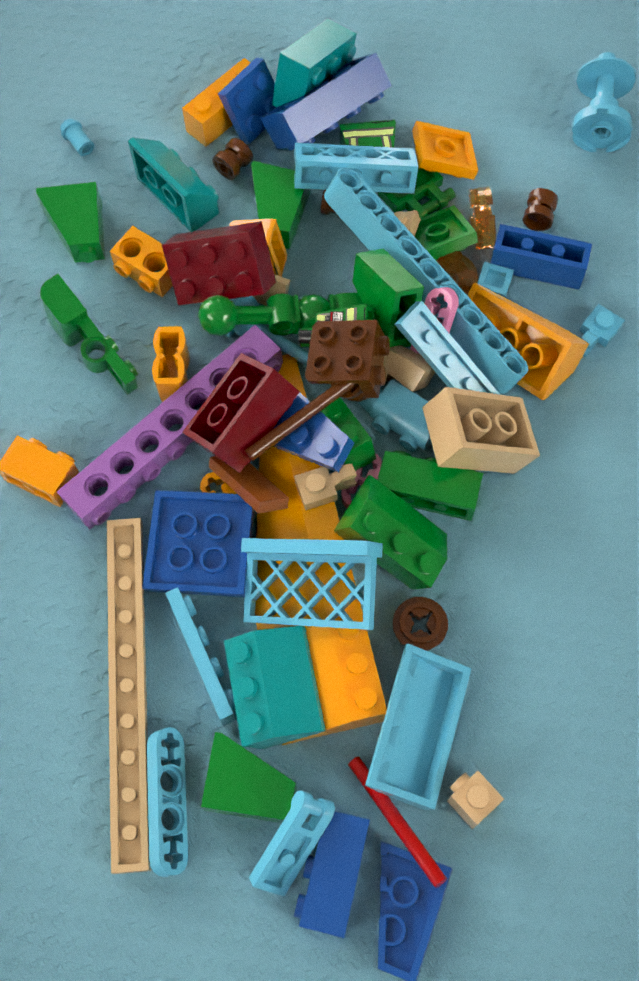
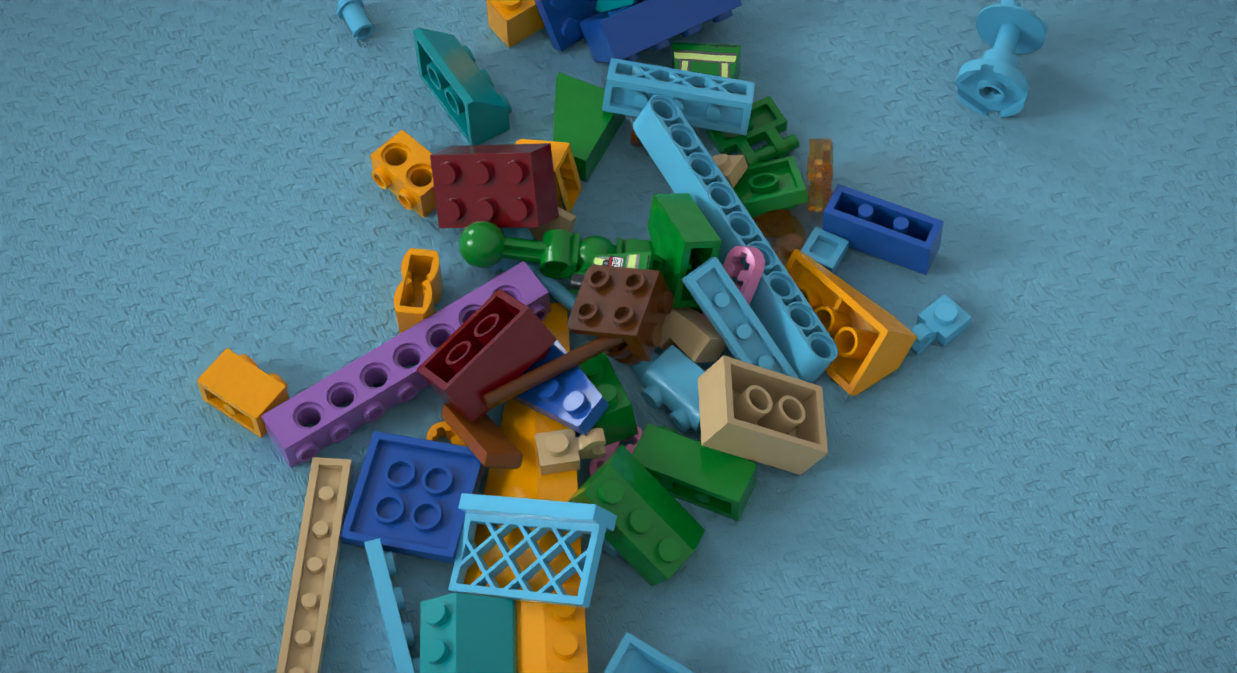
camera: 10 degrees right, 10 degrees down
(73, 325) = (313, 235): green plate -> none
(76, 217) = (338, 112): green slope -> none
(232, 158) = (537, 66): reddish brown wheel -> none
(420, 608) = (655, 607): reddish brown gear -> none
(444, 150) = (794, 89): light orange plate -> none
(540, 209) = (896, 177): reddish brown wheel -> none

